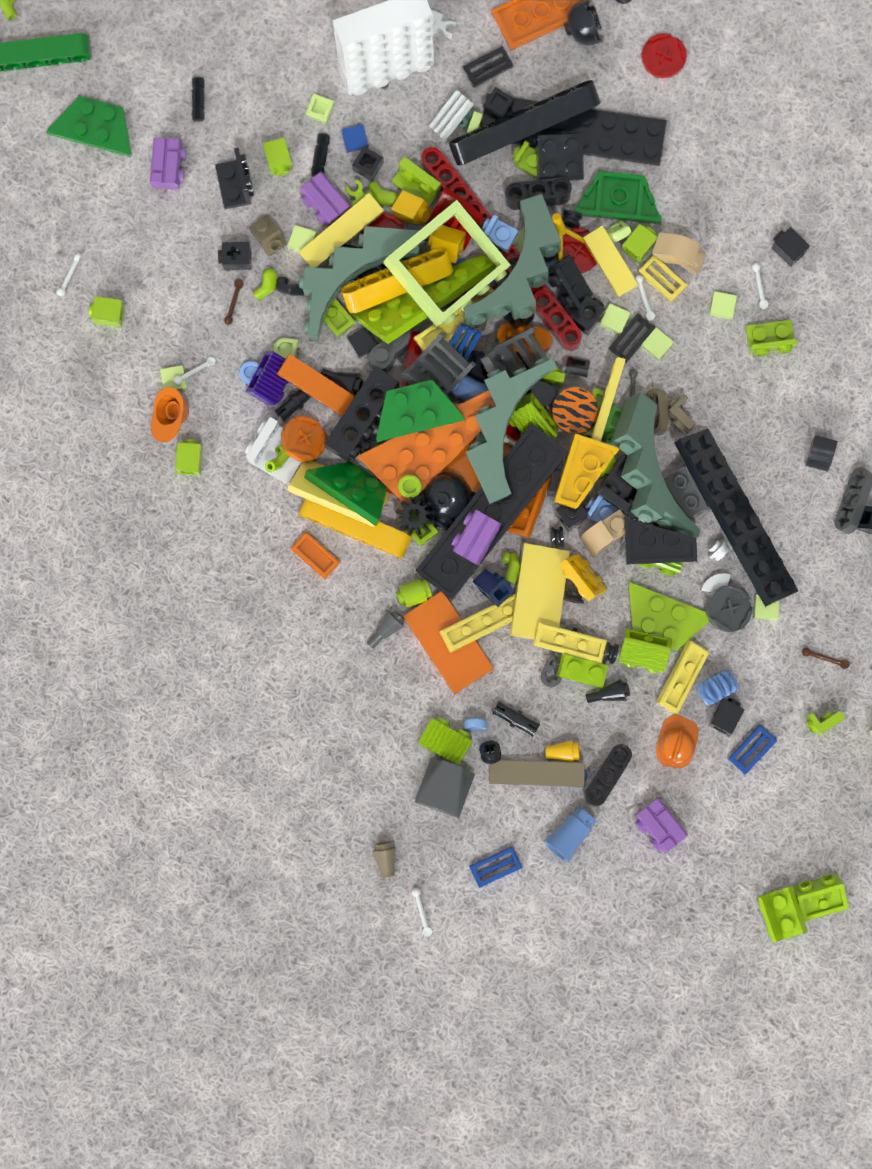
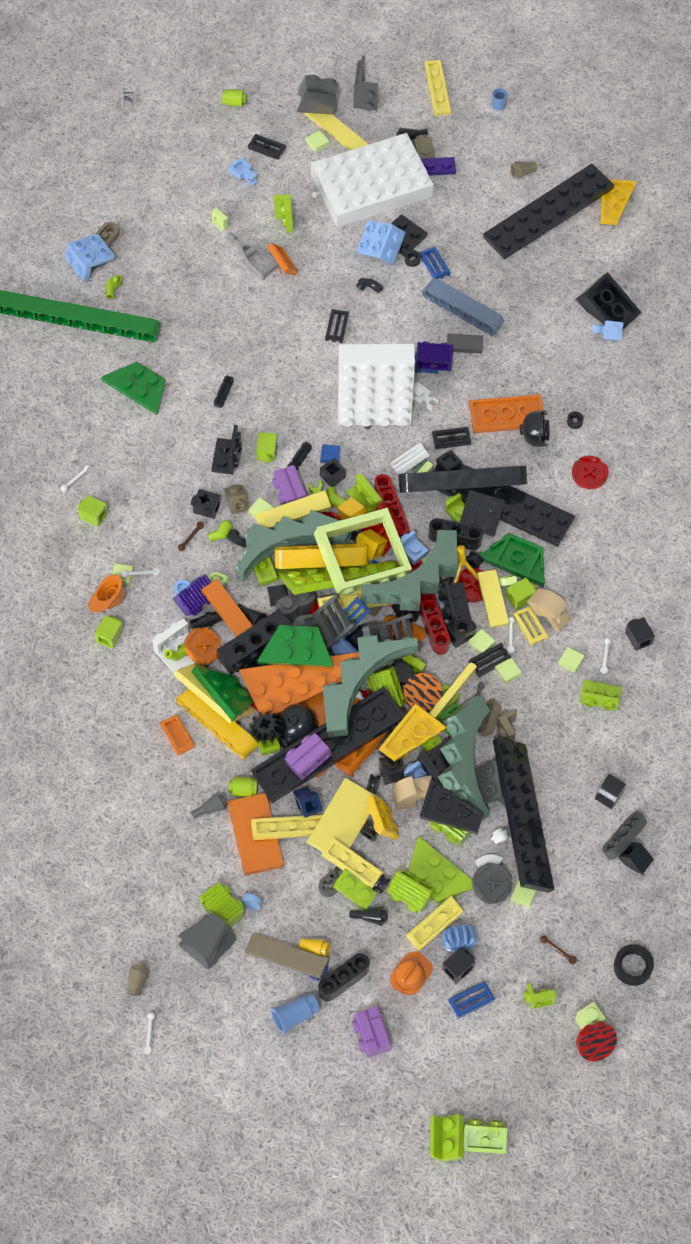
camera: 15 degrees right, 20 degrees down
(166, 163) = (181, 425): medium lavender brick -> none
(320, 108) = (312, 426): yellowish green tile -> none
(409, 486) = (271, 703): lime tile -> none
(489, 746) = (255, 926): black bush -> none
(513, 566) = (330, 790): lime arm -> none
(514, 858) = (227, 1026): blue tile -> none
(516, 718) = (286, 909): black pin -> none
(577, 366) = (438, 665): black tile -> none

